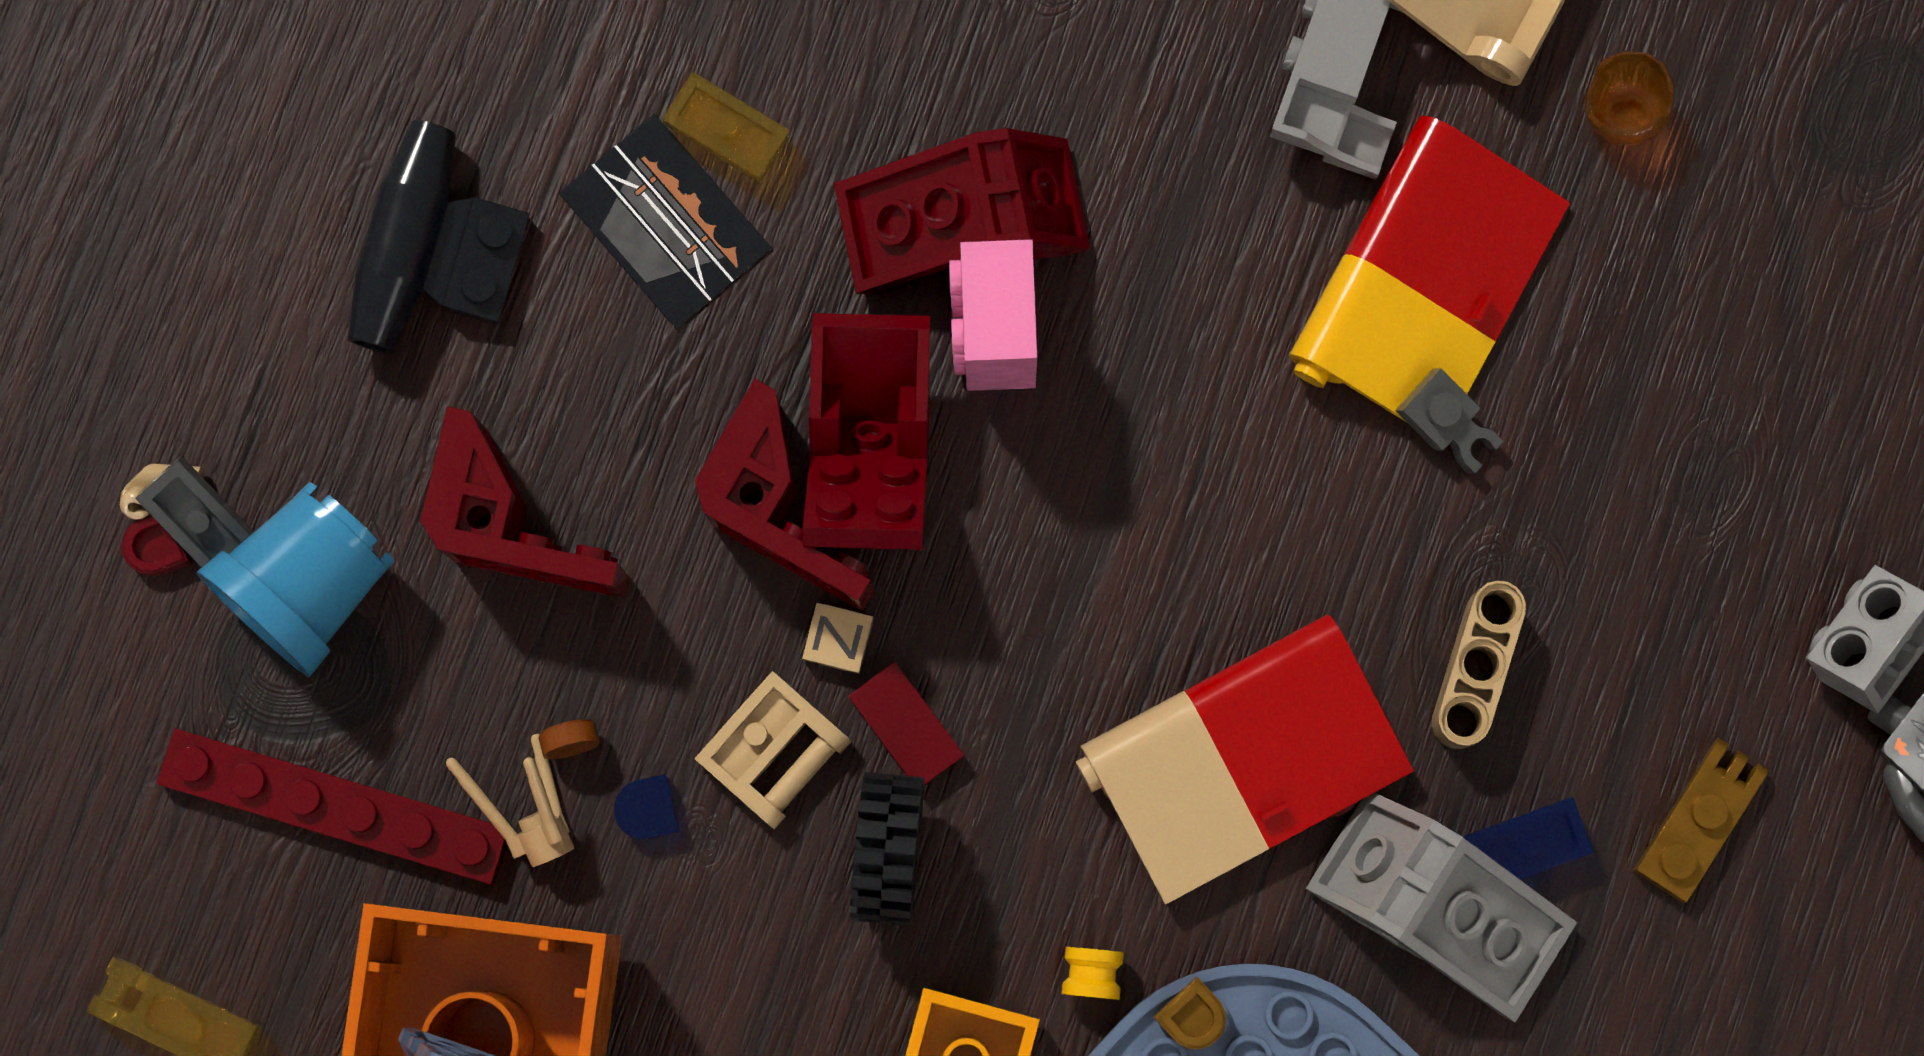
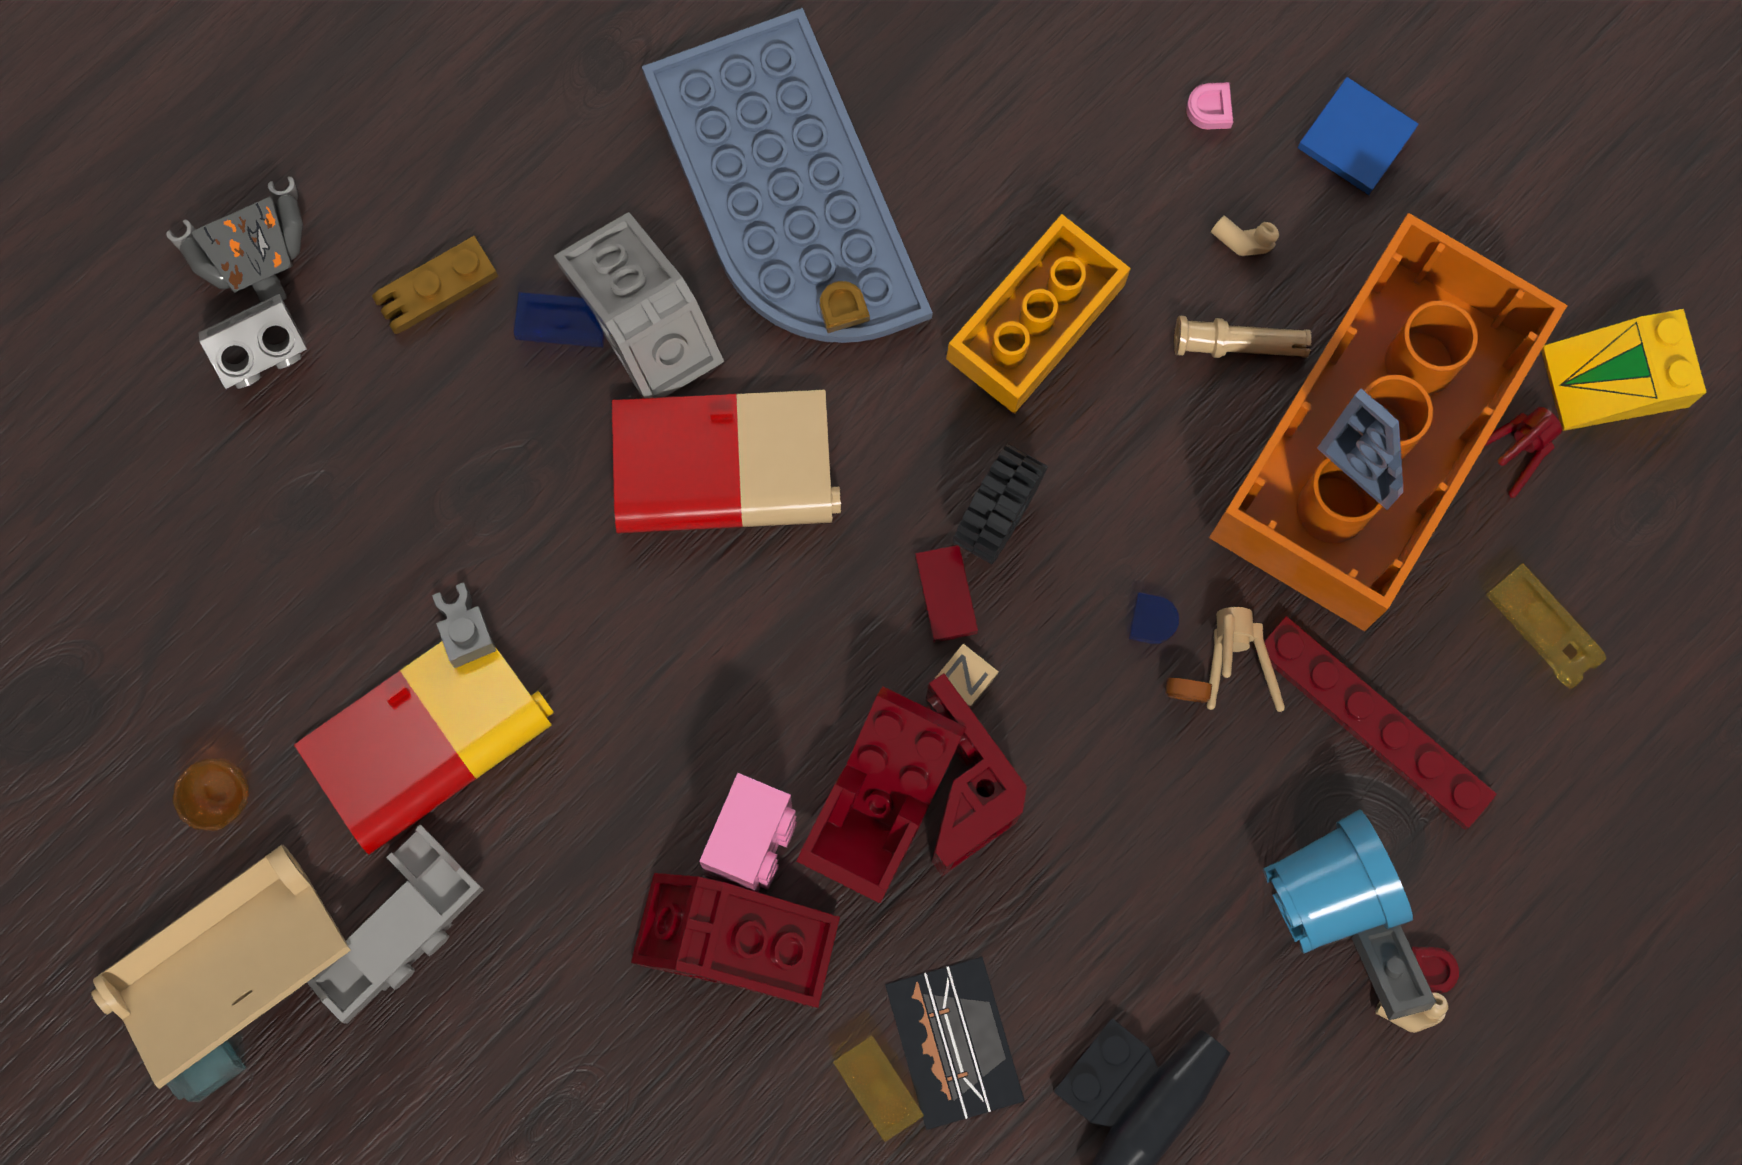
camera: 165 degrees left, 5 degrees down
(473, 484) = (1176, 896): dark red bracket -> none
(758, 736) = (1054, 631): tan plate -> none
(1092, 973) = (896, 368): yellow wheel -> none
(1498, 644) = (535, 429): tan beam -> none

